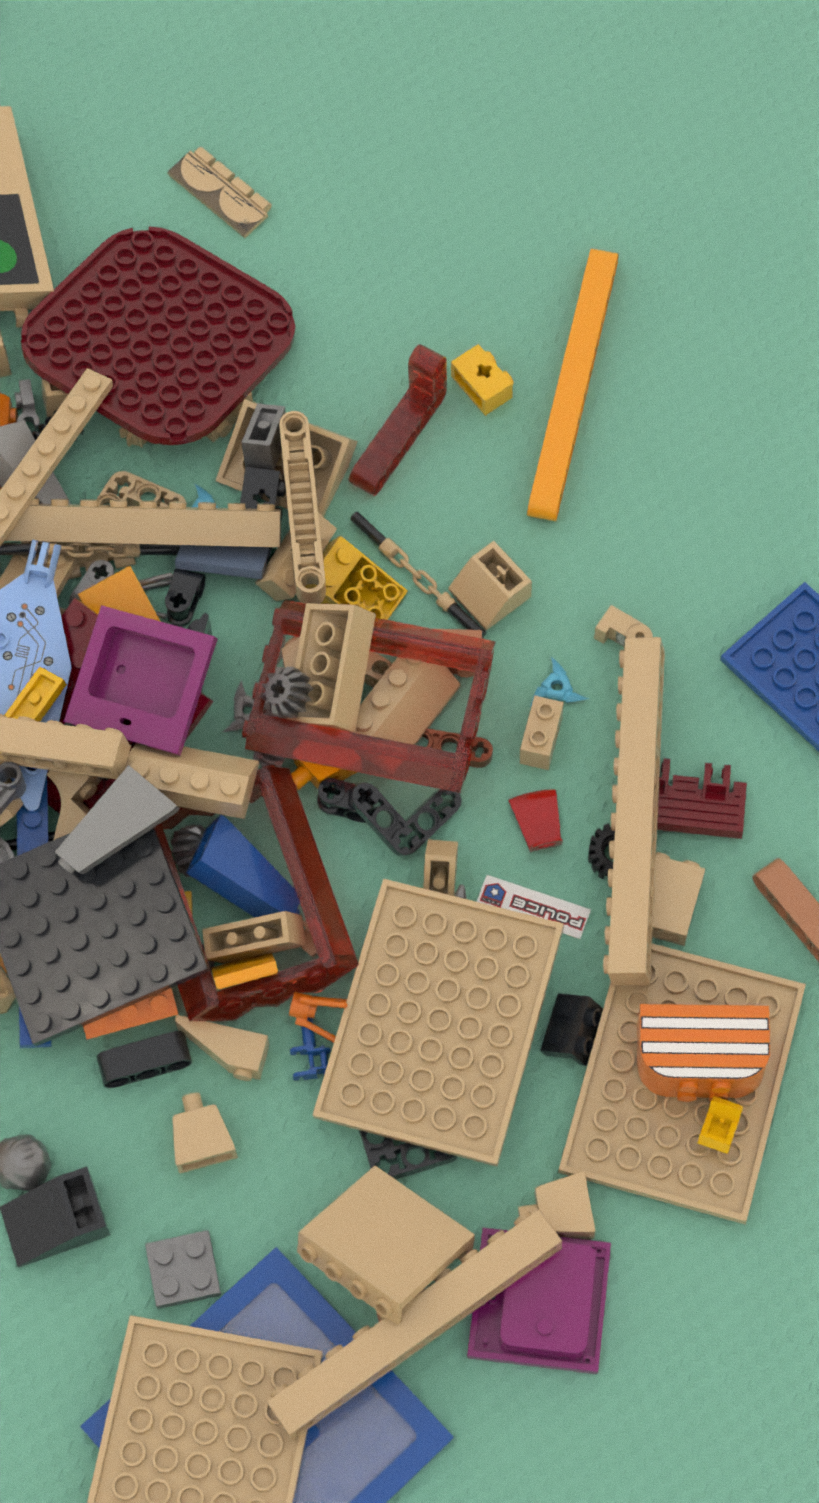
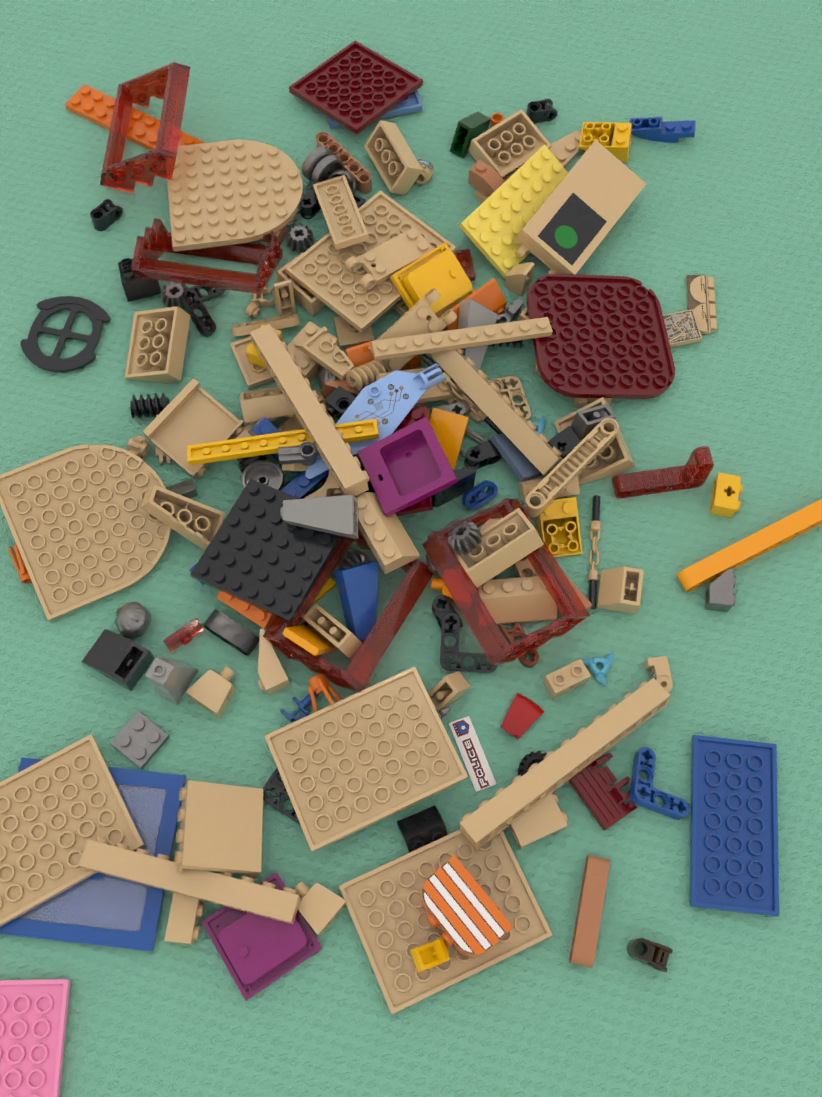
camera: 45 degrees right, 0 degrees up
(96, 1118) = (183, 635): none -> clear red plate
(149, 1171) = (170, 678): none -> light grey slope
(231, 641) = (478, 495): none -> blue plate
(233, 238) = (682, 328): none -> tile
(449, 1372) = (184, 920): none -> tan brick
(591, 487) = (720, 594): none -> flat silver slope
(737, 754) = (646, 788): none -> blue beam

